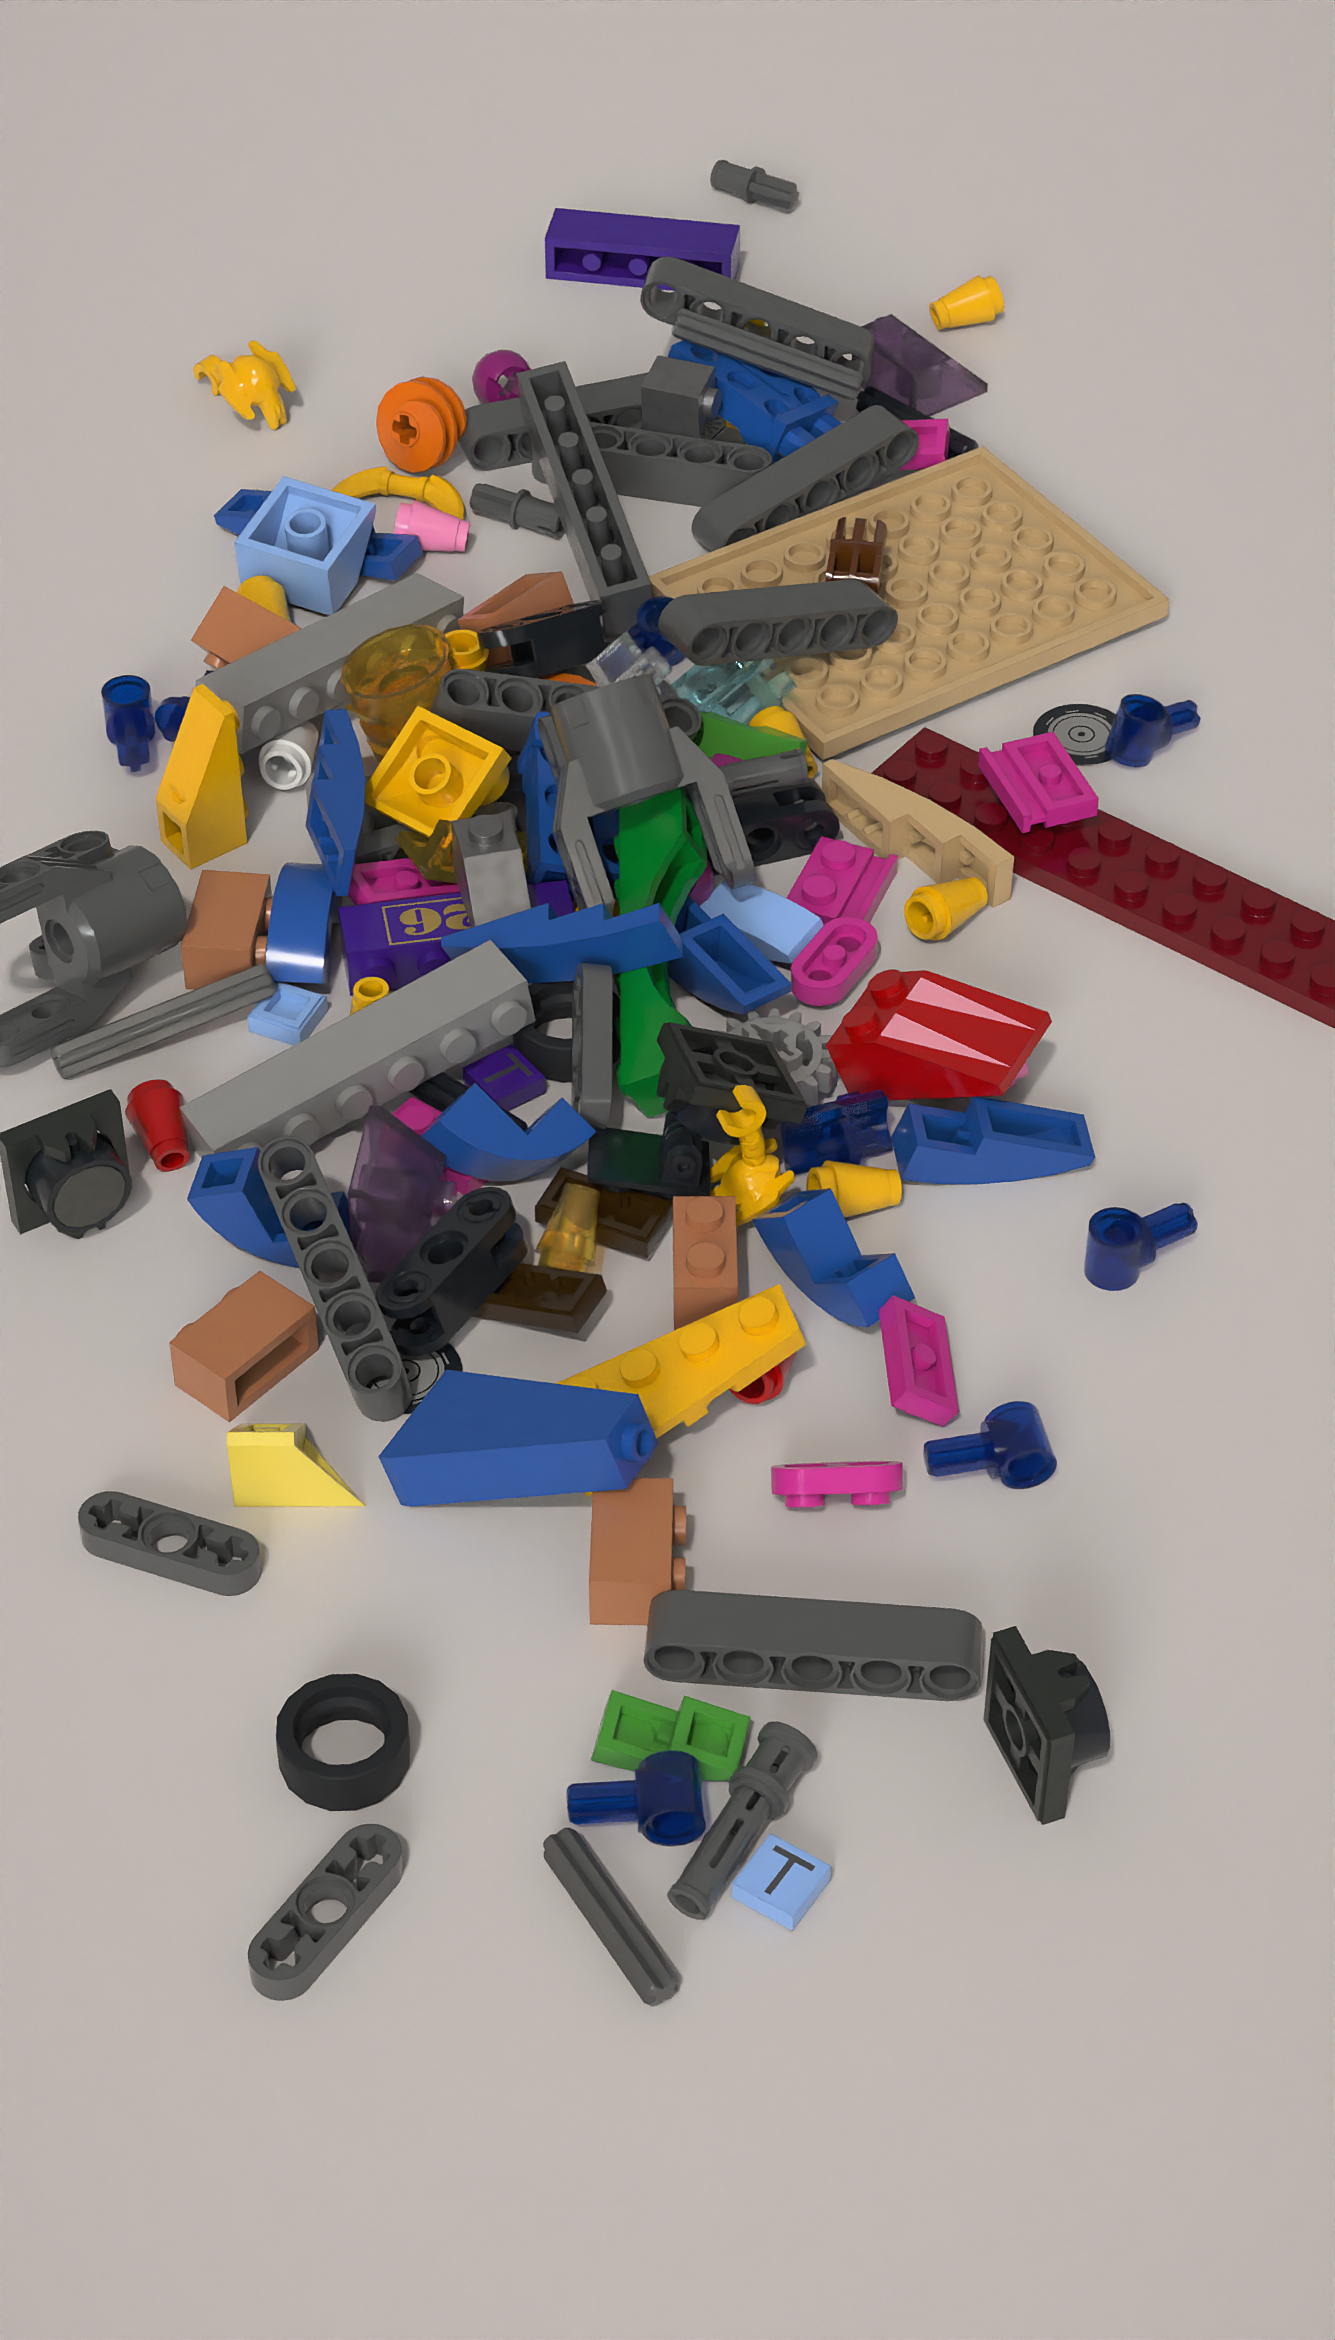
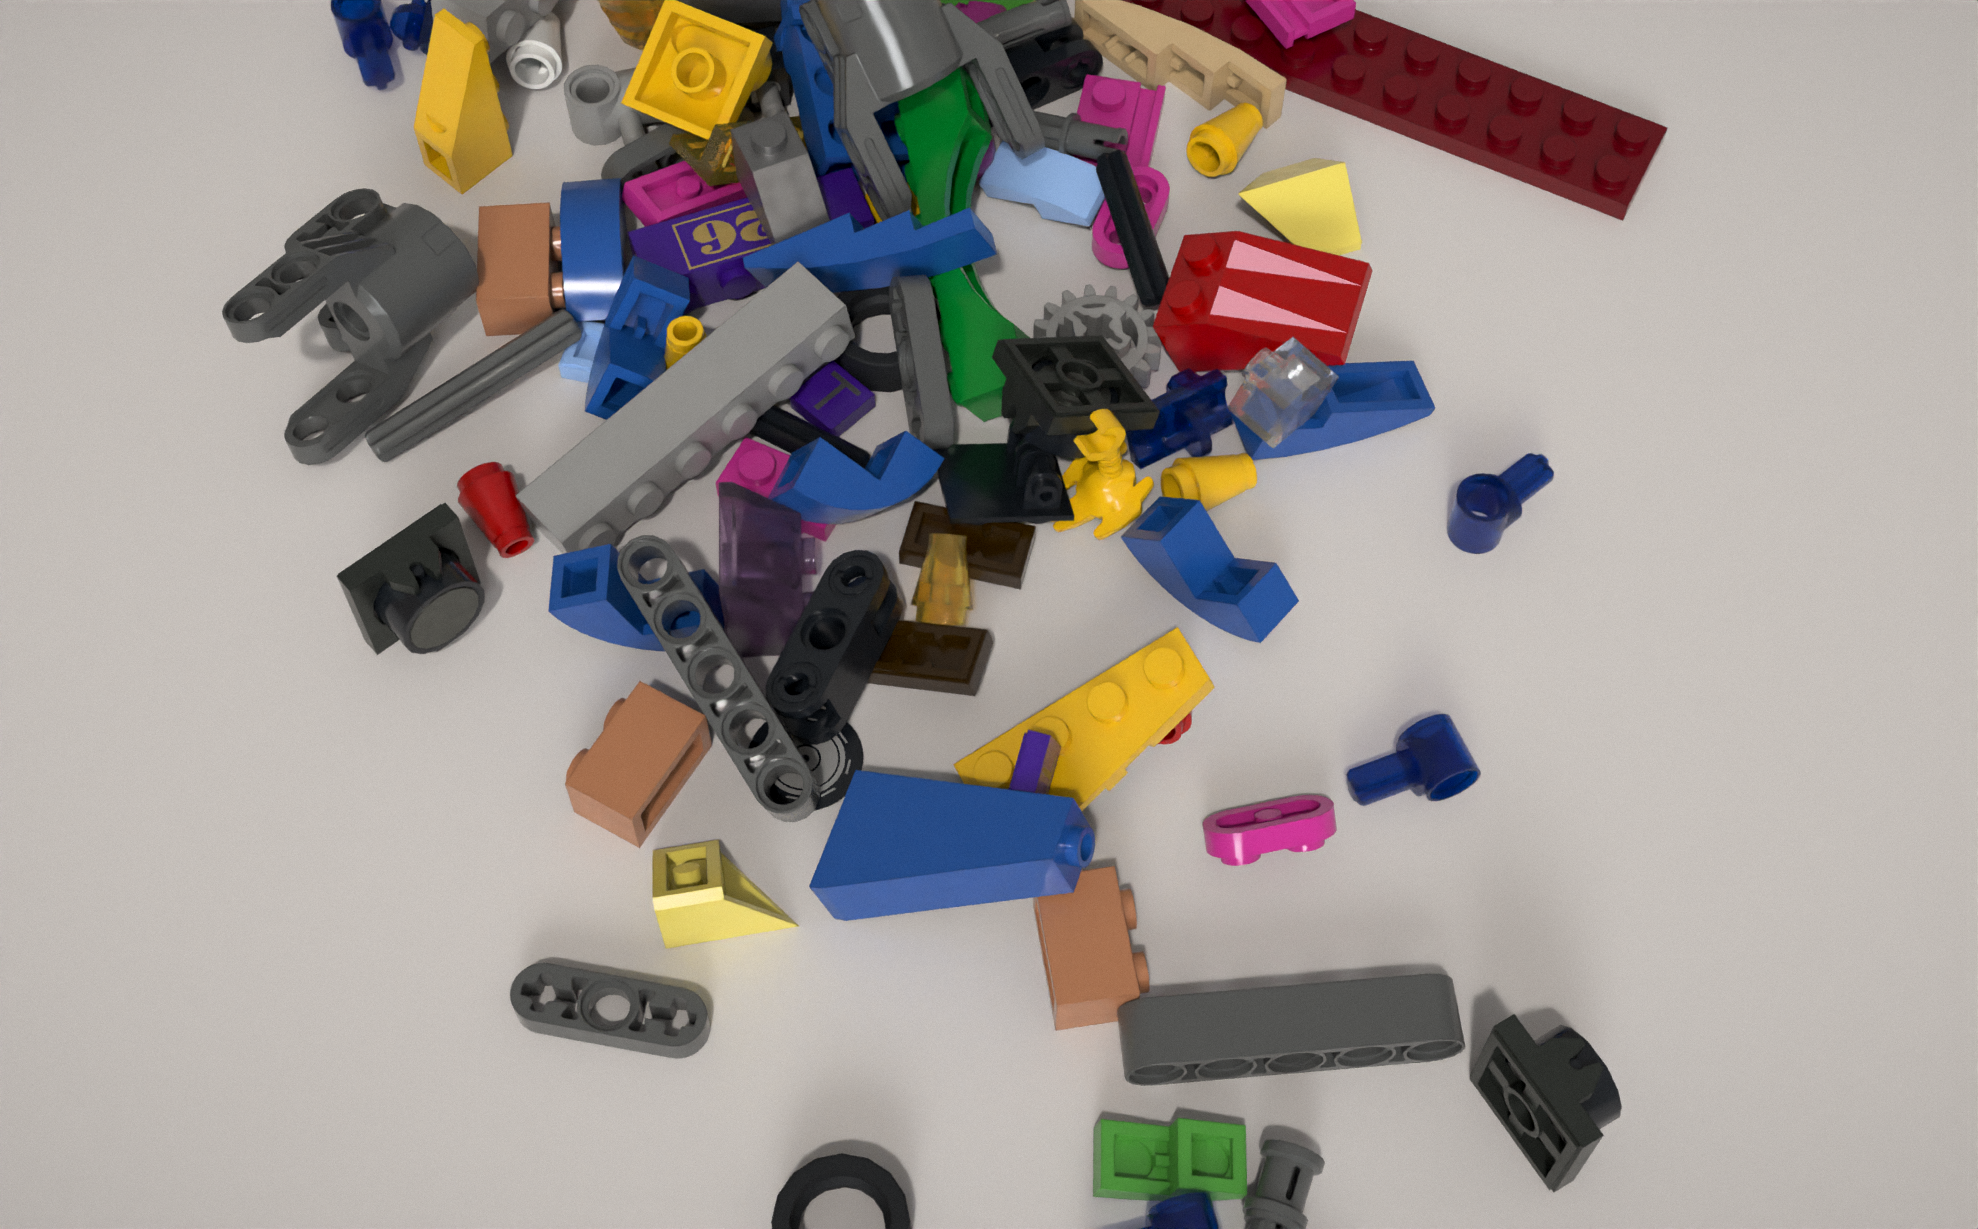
camera: 10 degrees left, 15 degrees up
(325, 988) = (635, 335): none -> blue brick
(337, 800) = (605, 112): blue slope -> none
(618, 1370) = (1035, 763): none -> dark purple tile
(703, 1256) = (1085, 598): nougat brick -> none
(723, 963) = (1030, 241): blue slope -> none
(797, 883) = (1078, 137): none -> dark grey axle
(829, 960) = (1133, 227): none -> black axle
(918, 1361) = (1318, 675): dark pink plate -> none
(935, 1109) = (1281, 391): none -> clear brick
(1012, 967) = (1308, 205): none -> light yellow slope

